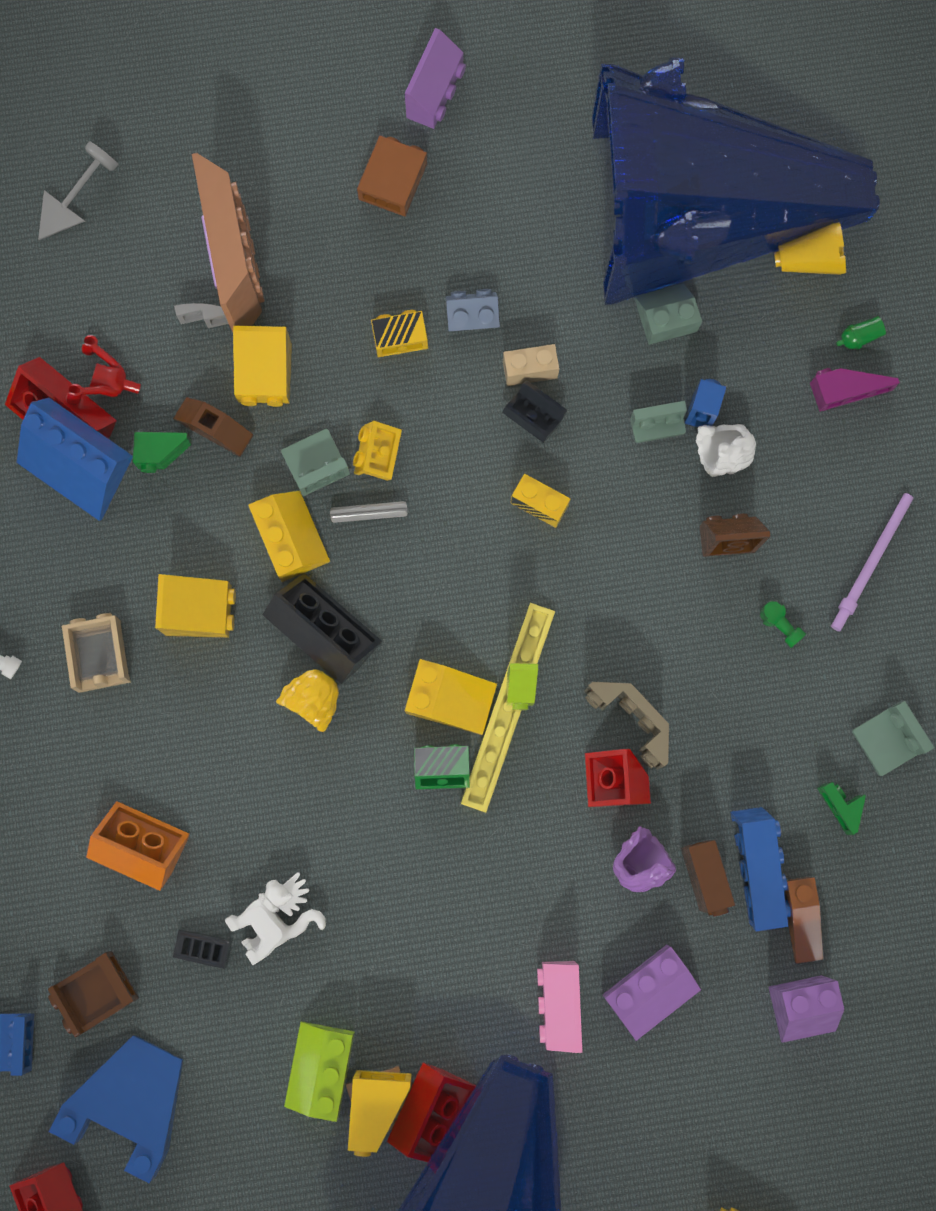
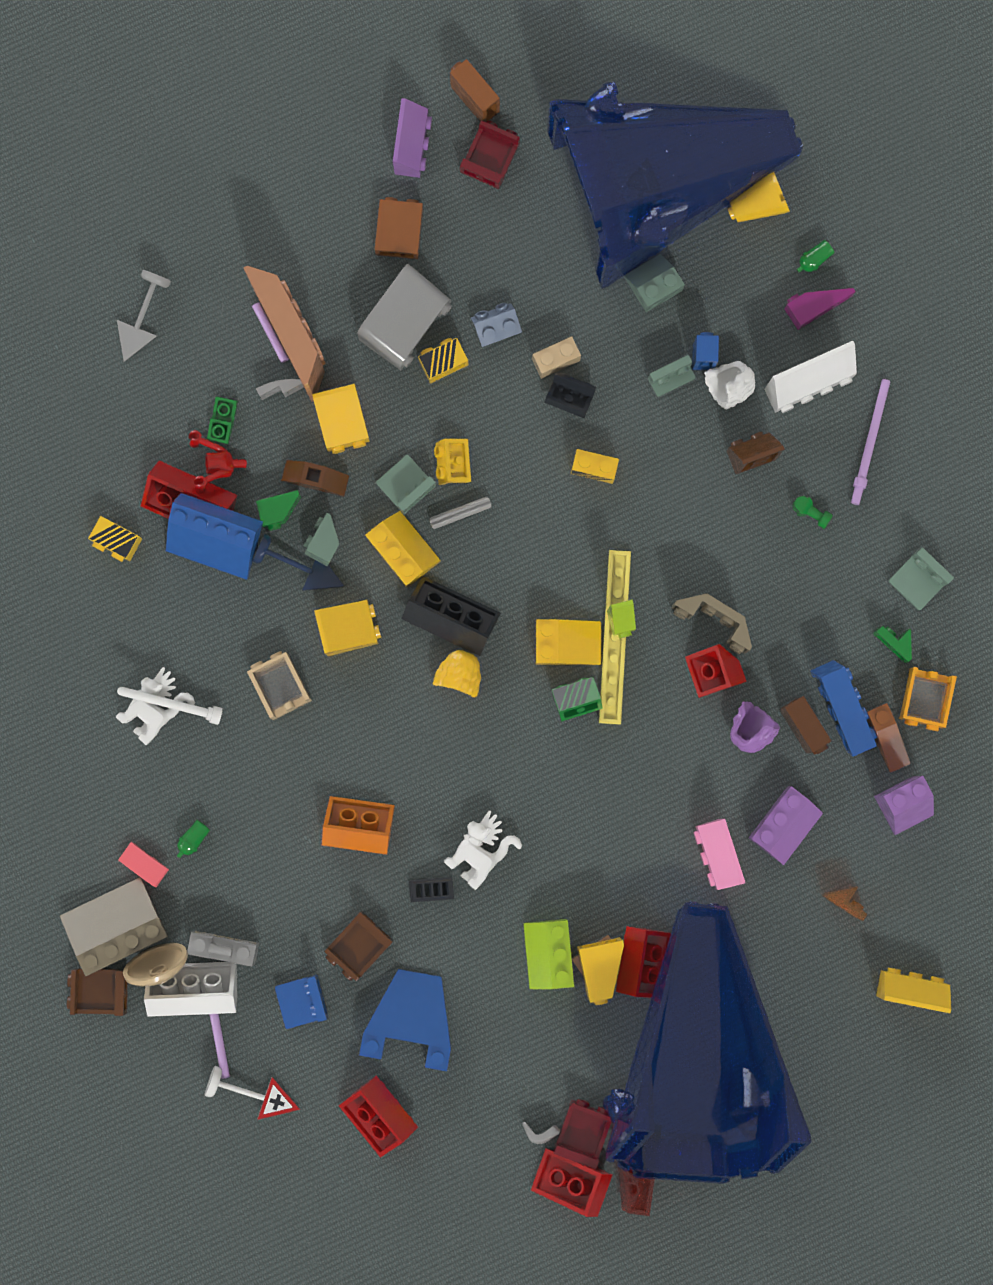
camera: 15 degrees left, 5 degrees up
(128, 334) = (222, 420): none -> green slope
(183, 540) = (319, 576): none -> dark blue piece
(198, 502) = (324, 542): none -> sand green slope
(366, 270) = (403, 317): none -> light grey windscreen
(520, 123) = (490, 154): none -> dark red panel
(521, 47) = (474, 91): none -> dark orange brick
(696, 1103) = (841, 899): none -> clear orange slope
(824, 466) = (812, 378): none -> white slope
(864, 886) = (927, 699): none -> window

